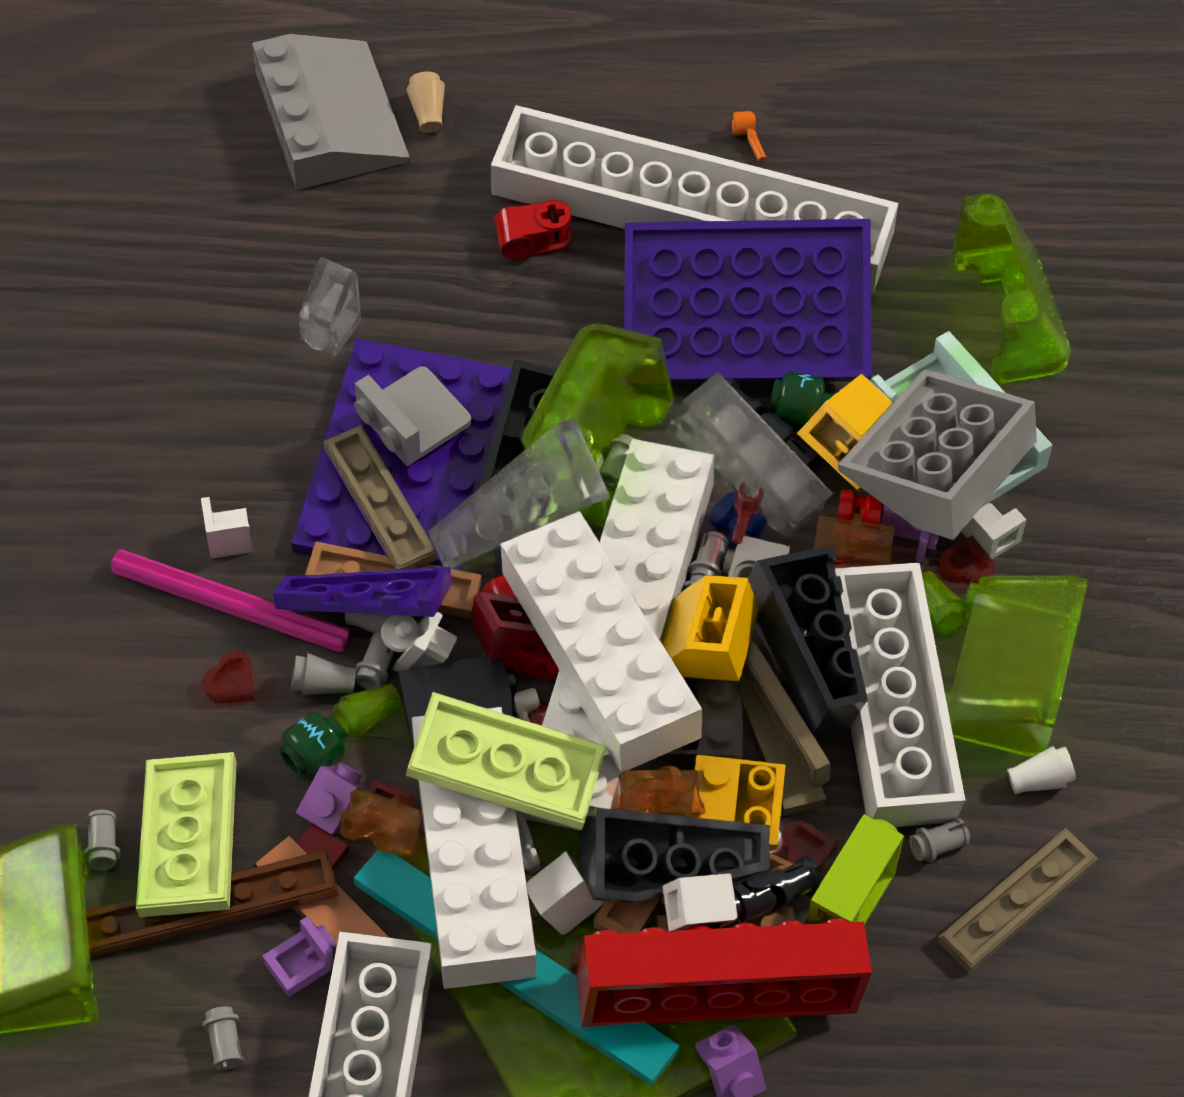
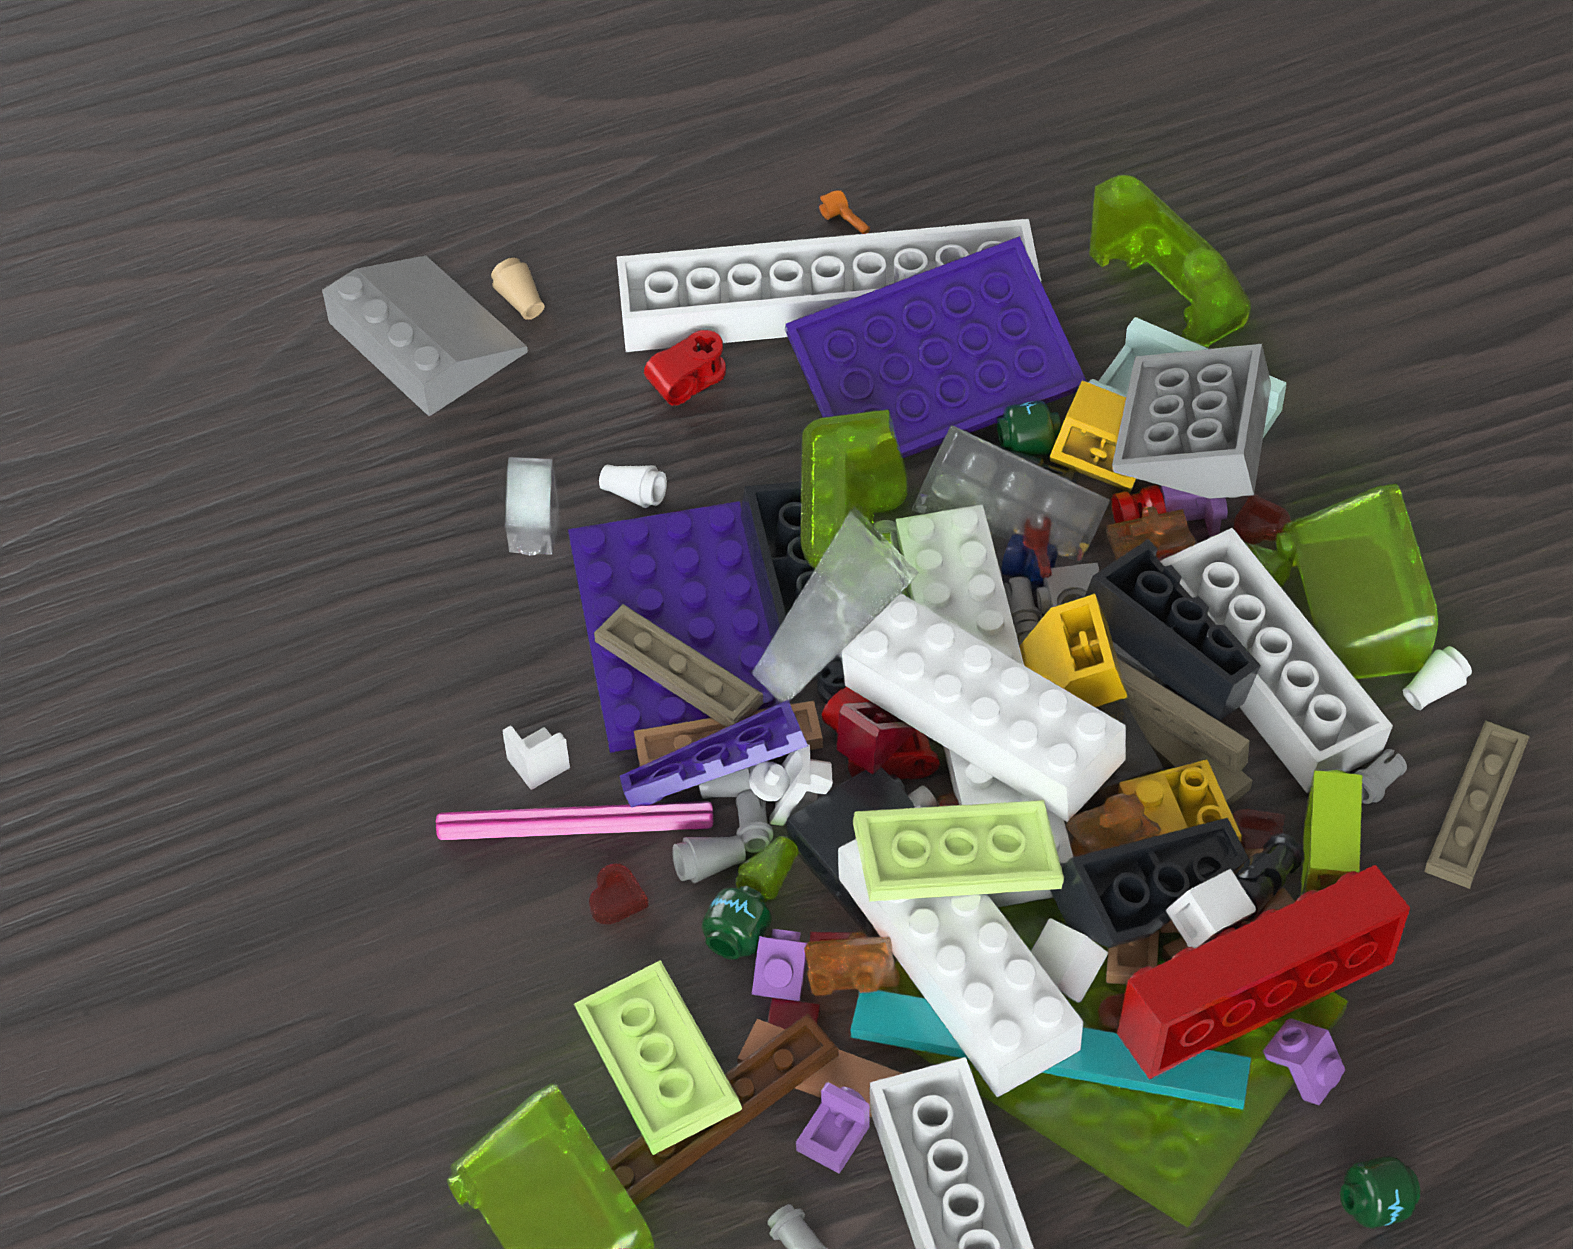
camera: 20 degrees left, 5 degrees down
(101, 848) = (581, 1104): light grey pin -> none
(411, 413) = (667, 575): light grey bracket -> none
(435, 319) = (635, 483): none -> white cone
(995, 531) = (1277, 482): white panel -> none

